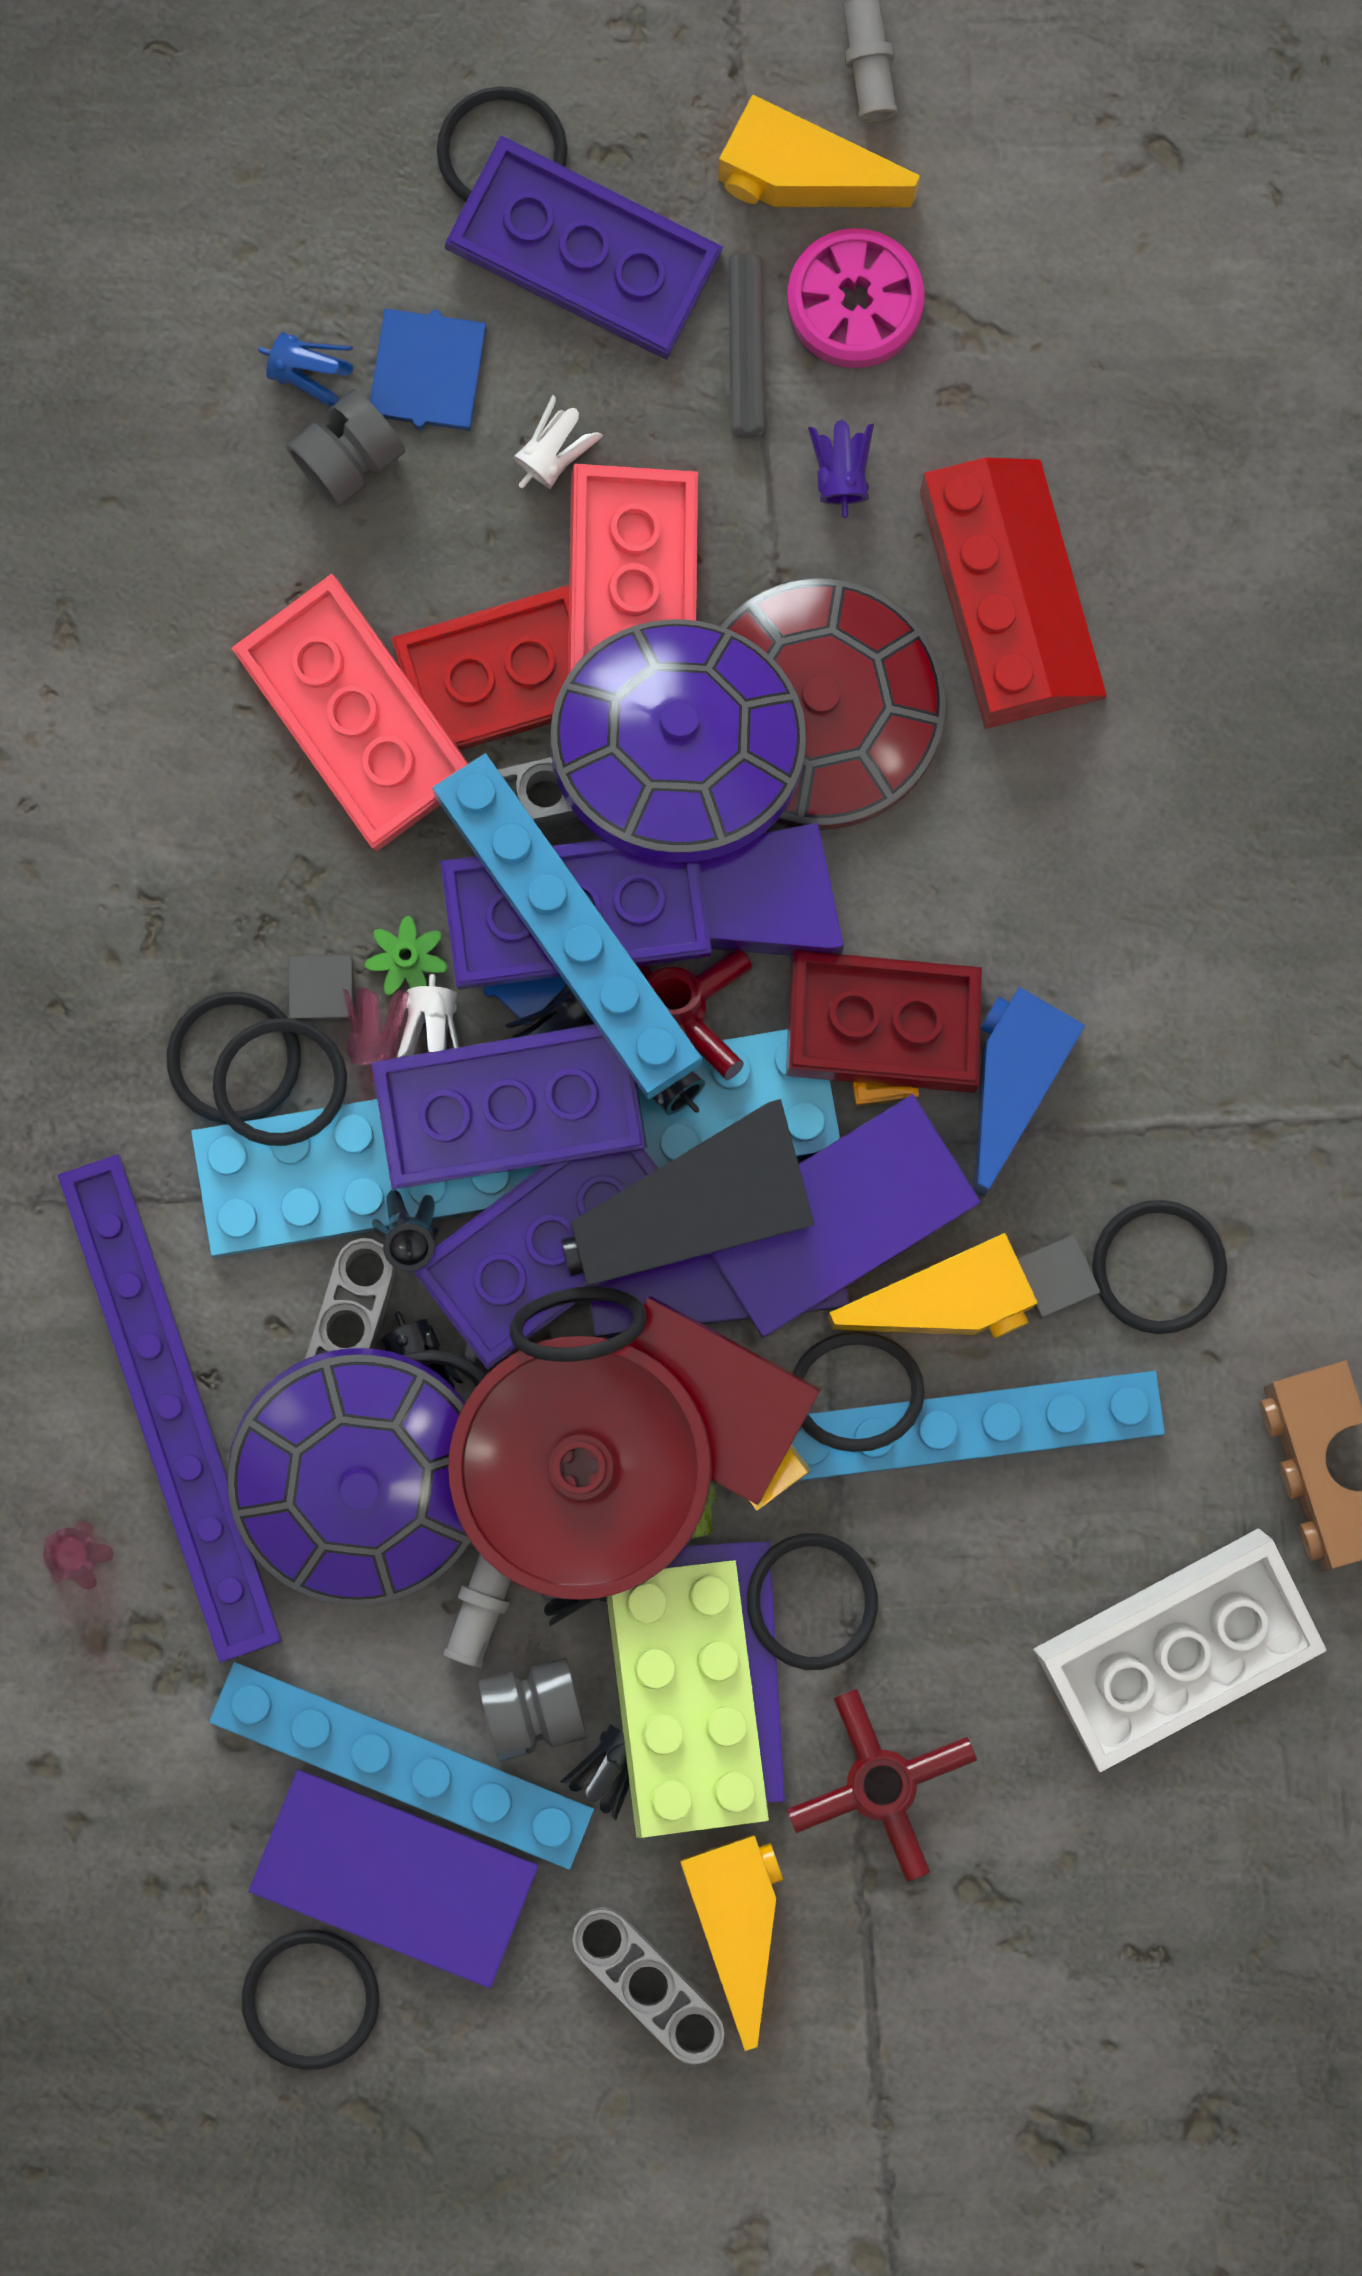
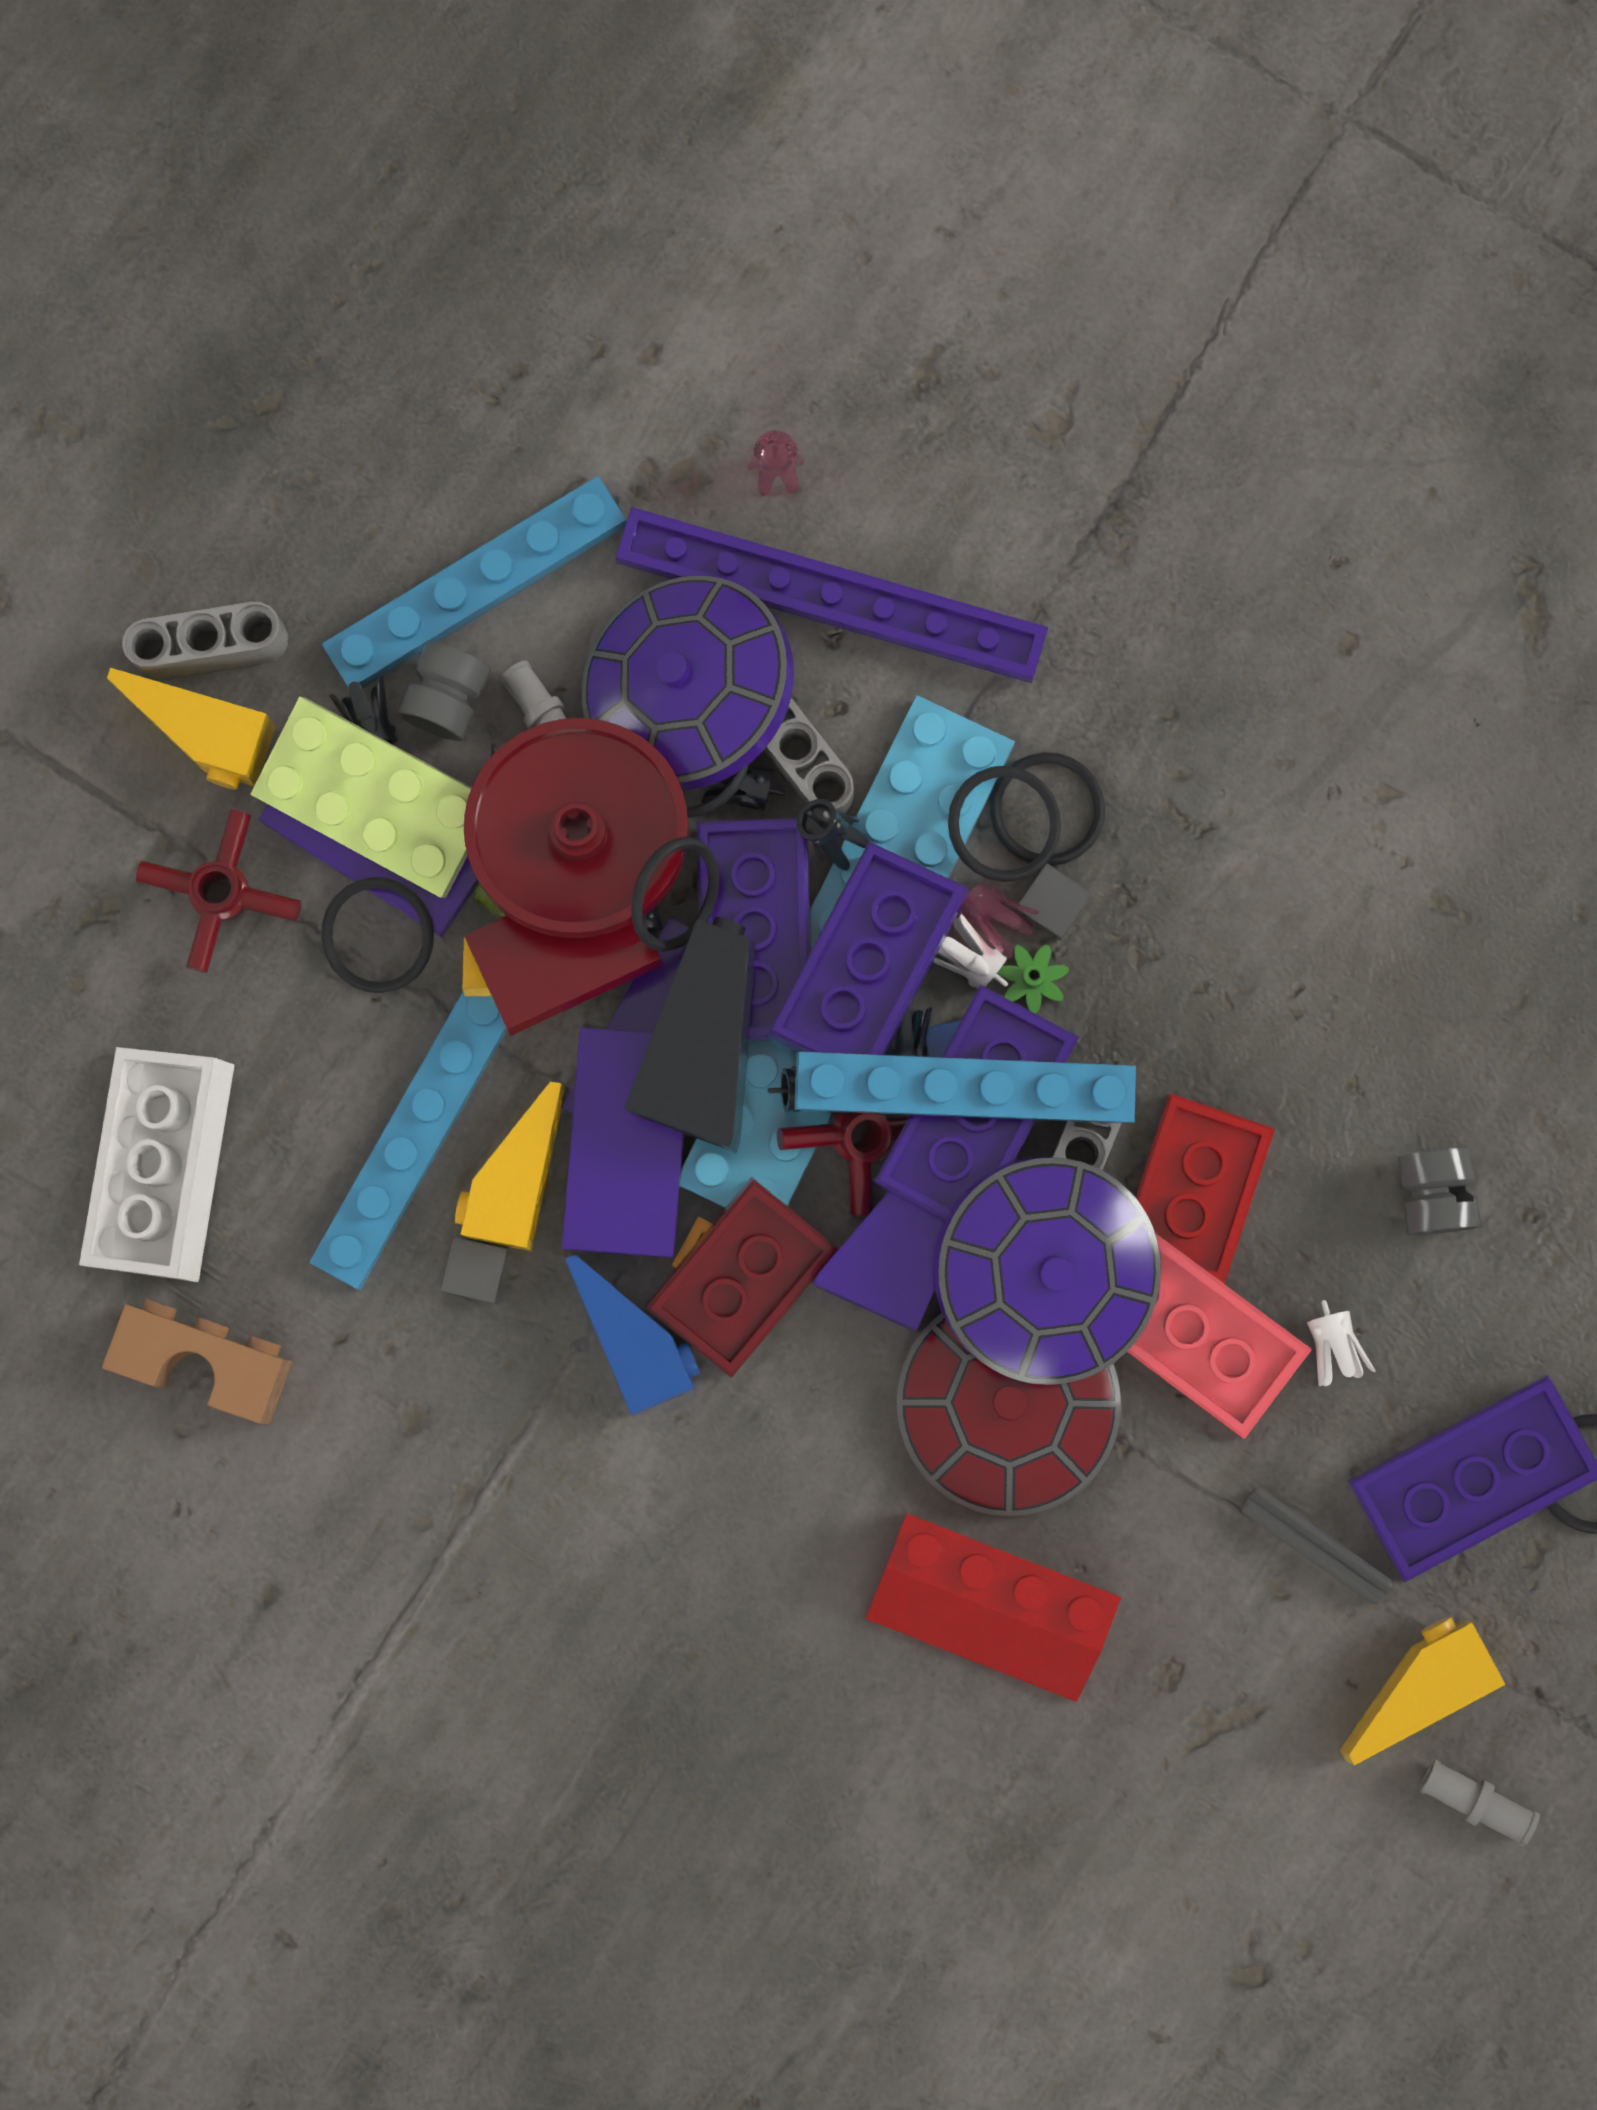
camera: 135 degrees right, 0 degrees up
(292, 355) = (1525, 1209): blue piece -> none
(351, 710) = (1239, 1062): coral tile -> none
(365, 2027) = (333, 384): black tyre -> none
(393, 1878) = (404, 527): dark purple tile -> none
(428, 369) = (1461, 1299): blue piece -> none
(842, 466) = (1168, 1541): dark purple piece -> none
(853, 260) = (1313, 1622): dark pink wheel -> none
(894, 1350) = (447, 1082): black tyre -> none
(1196, 1220) = (466, 1385): black tyre -> none

